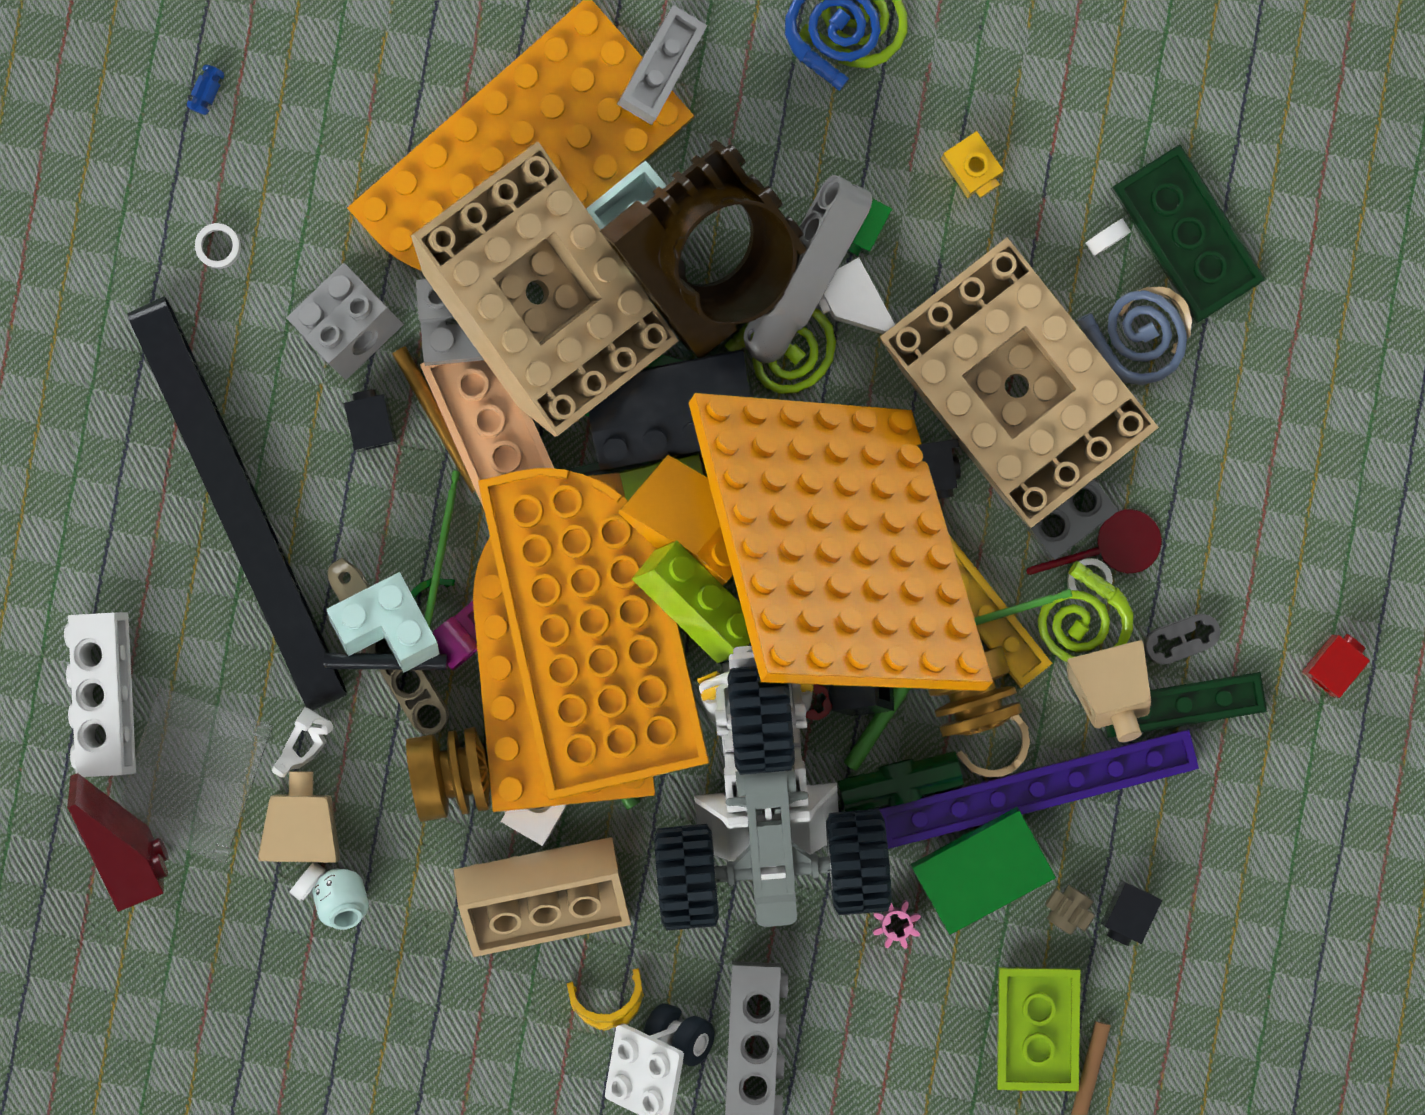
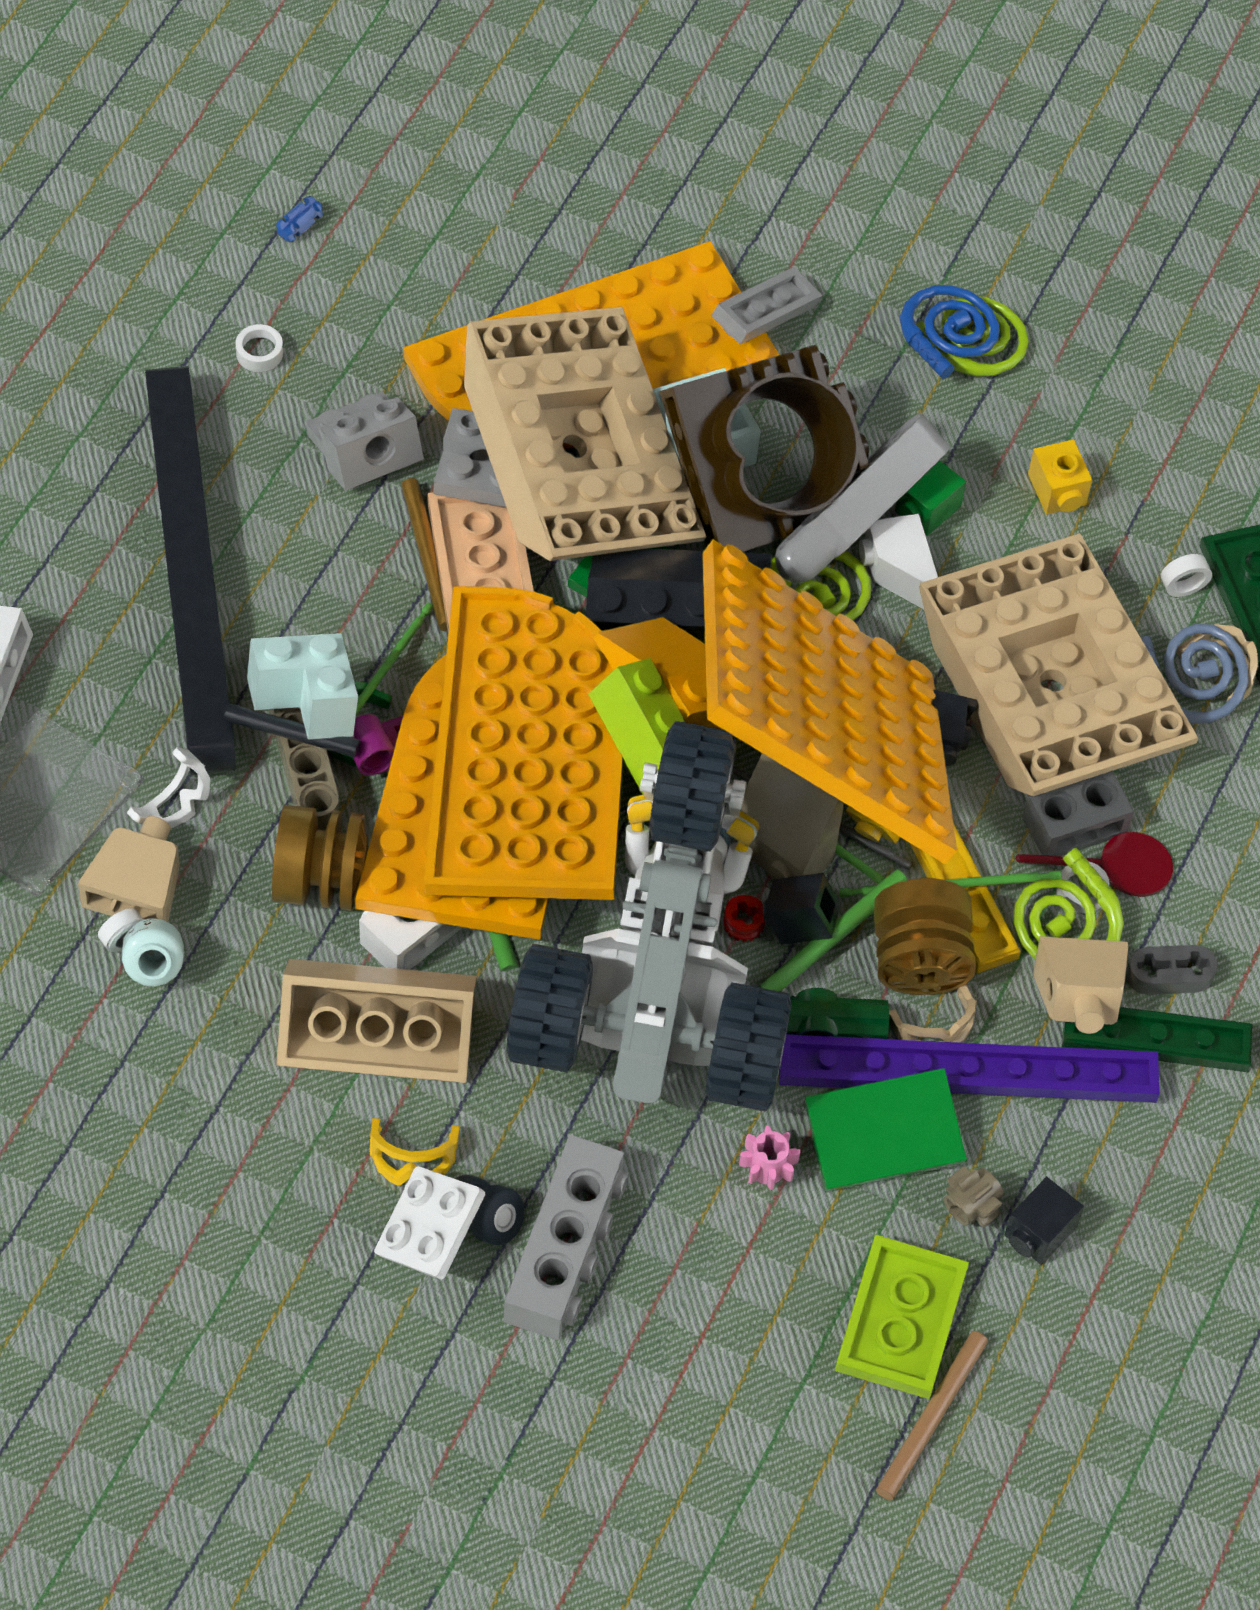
camera: 10 degrees right, 30 degrees down
(370, 421) = (356, 530): black brick -> none

